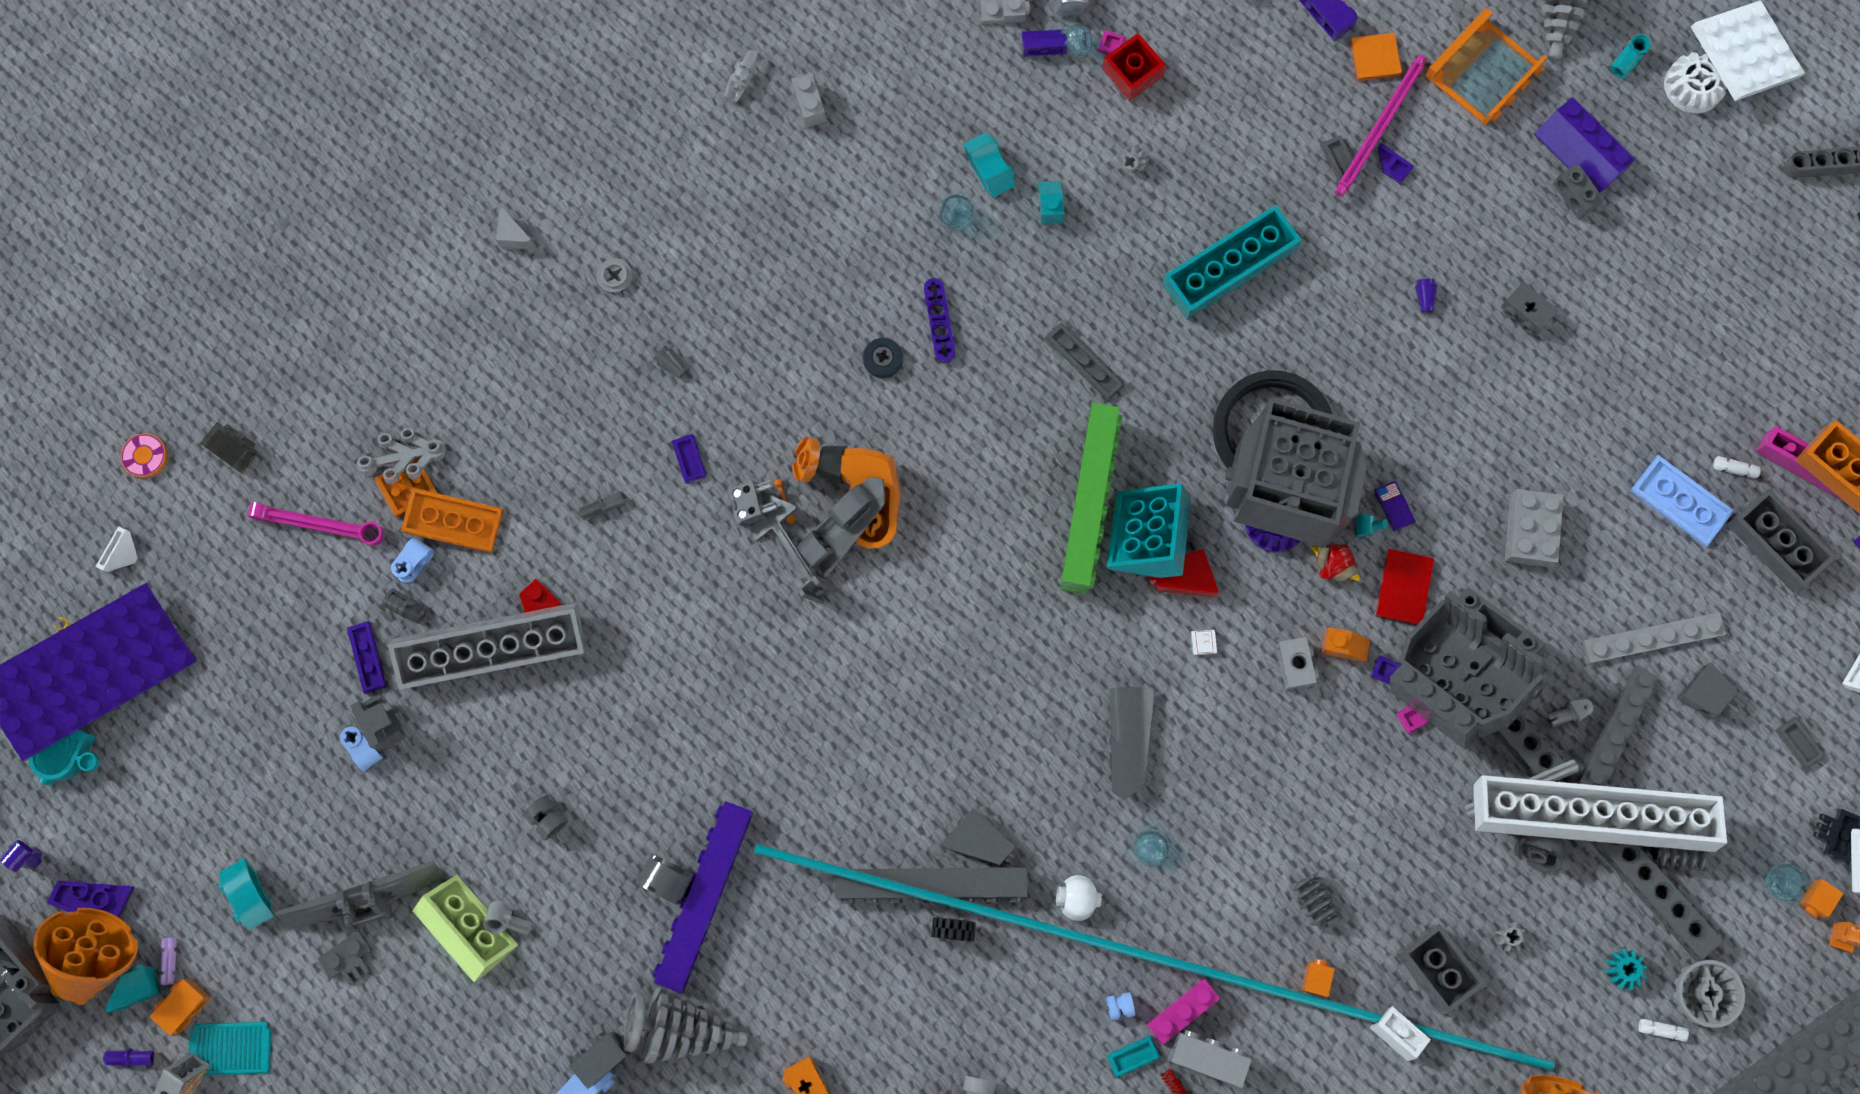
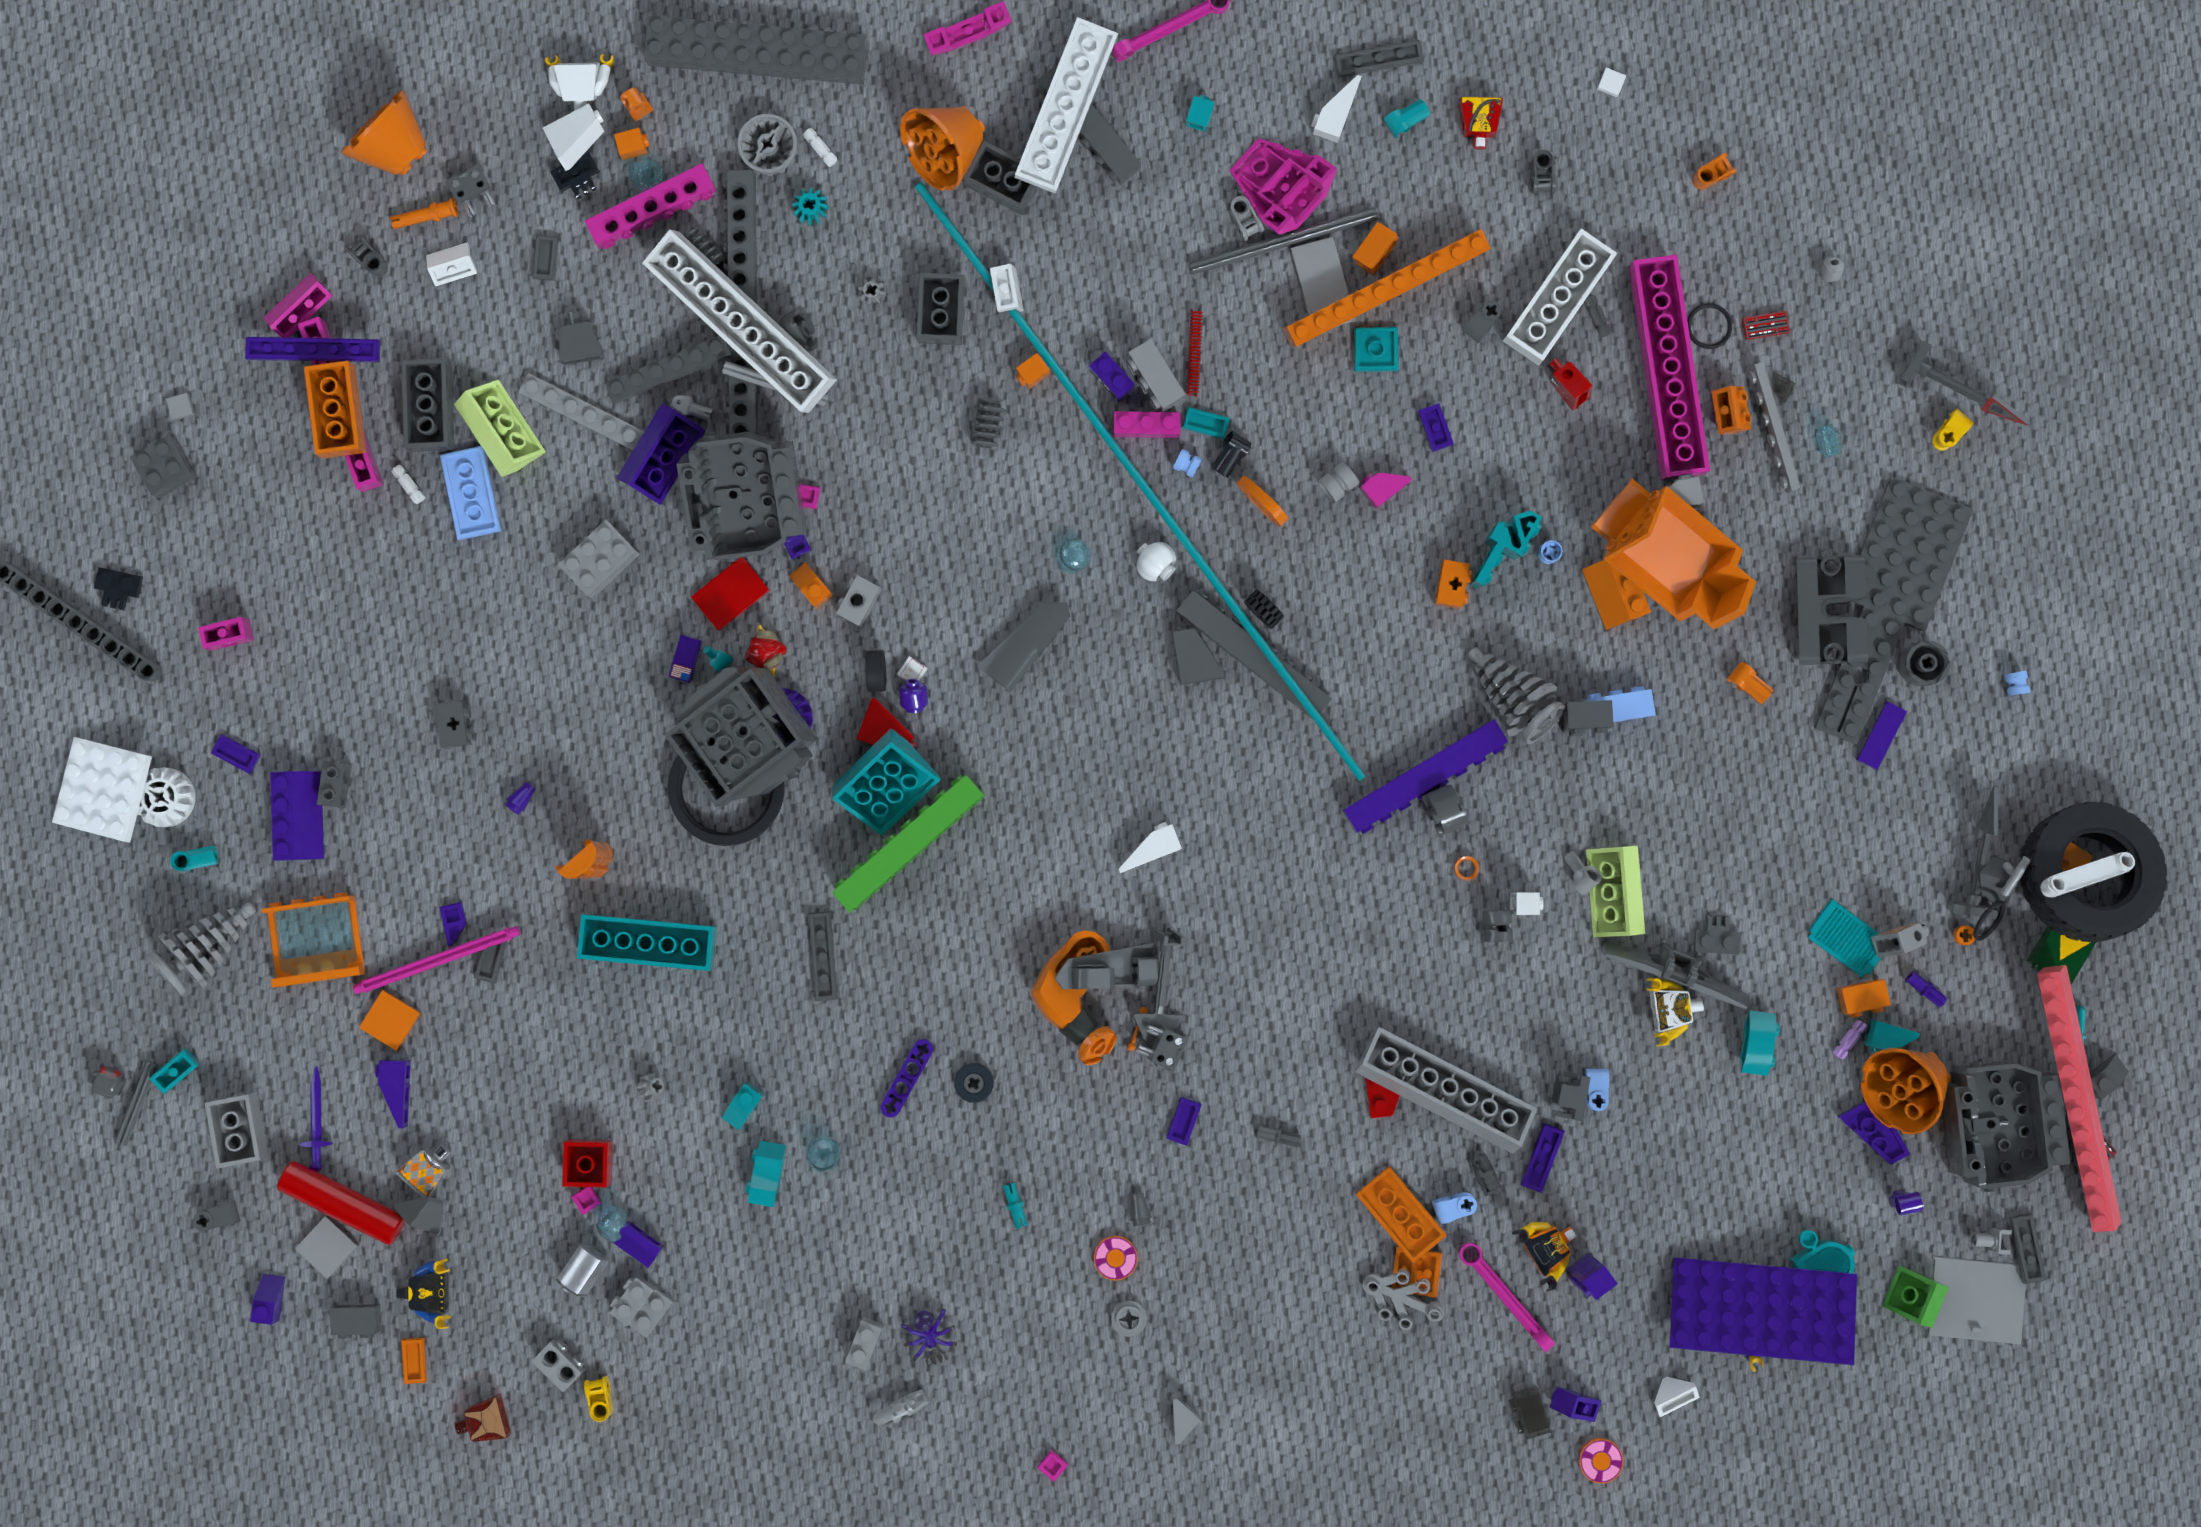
camera: 145 degrees left, 10 degrees up
(196, 481) = (1575, 1404): none -> dark purple slope
(251, 584) = (1591, 1277): none -> dark purple brick
(308, 584) = (1547, 1249): none -> torso
(342, 862) = (1671, 1009): none -> torso
(535, 855) = (1526, 903): none -> white slope
(589, 124) = (1052, 1465): none -> dark pink tile
(602, 839) = (1475, 865): none -> orange piece
(661, 312) = (1115, 1257): none -> tile
(766, 144) = (928, 1332): none -> animal
(773, 290) = (1015, 1205): none -> teal pin
(885, 660) = (1157, 844): none -> white slope
(1029, 1024) = (1262, 501): none -> orange piece
(1090, 1051) = (1234, 448): none -> black piece
(1186, 621) = (913, 696): none -> dark purple head
(1234, 616) = (875, 671): none -> black tyre
(1247, 1029) = (1111, 376): none -> dark purple brick
(1331, 279) = (589, 862): none -> orange container
(1567, 655) = (654, 459): none -> dark purple slope
(1672, 157) = (235, 753): none -> dark purple tile
(1708, 571) = (499, 427): none -> yellowish green slope
(1766, 237) = (226, 633): none -> dark pink brick
(1783, 806) = (638, 205): none -> dark pink brick

